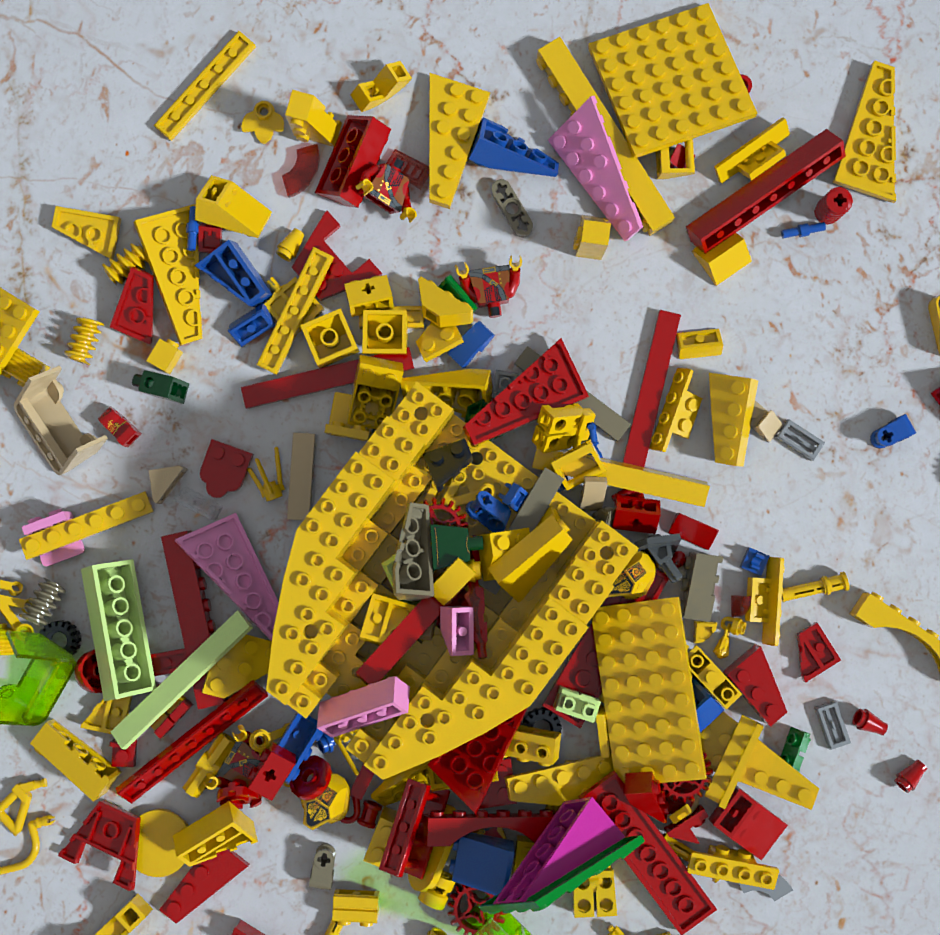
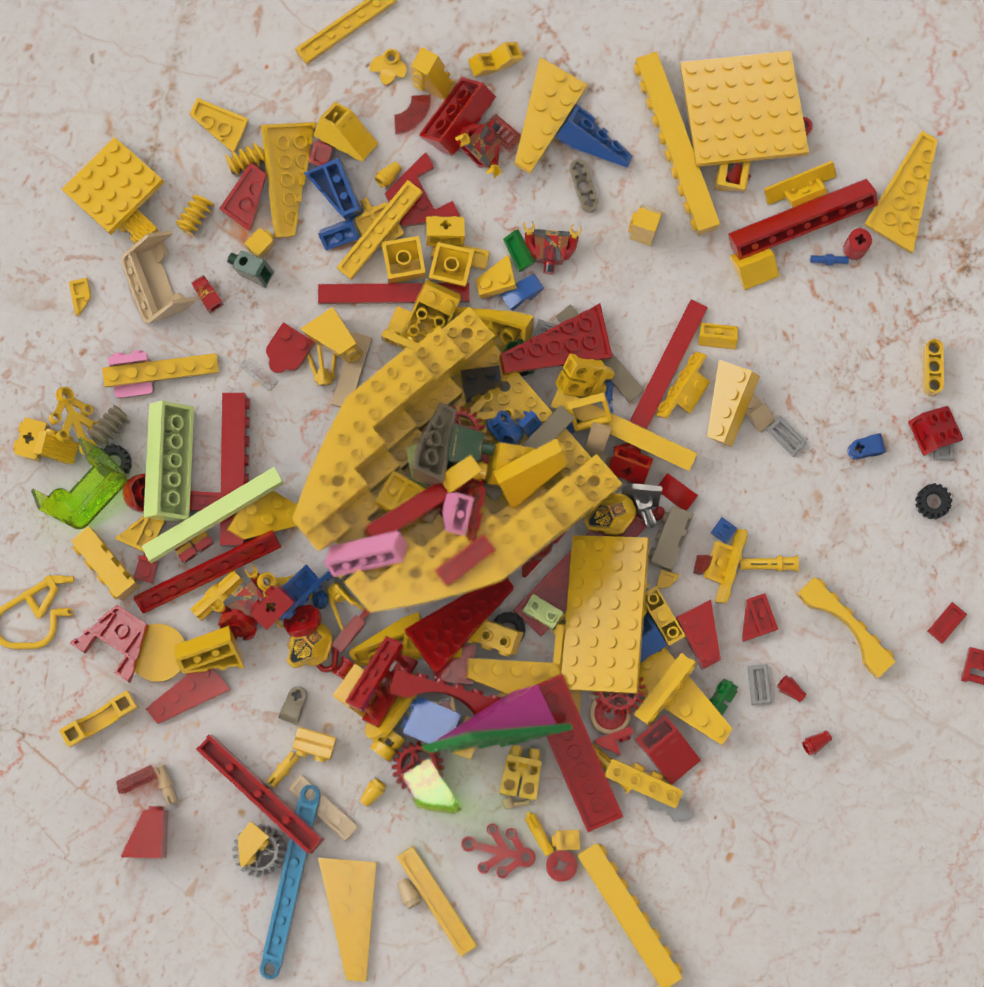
camera: 10 degrees right, 5 degrees down
(164, 481) = (235, 347): tan slope -> none
(192, 230) = (308, 142): blue bar -> none
(232, 564) = (276, 429): bright pink wing -> none
(272, 442) = (334, 335): none -> yellow slope
(442, 307) = (505, 254): yellow slope -> none
(482, 694) = (465, 560): none -> red tile
(587, 922) = (508, 803): none -> tan hand
(593, 161) = (662, 163): bright pink wing -> none
(645, 794) = (583, 698): red slope -> none
(680, 814) = (610, 725): yellow tile -> none
(738, 627) = (695, 582): yellow piece -> none

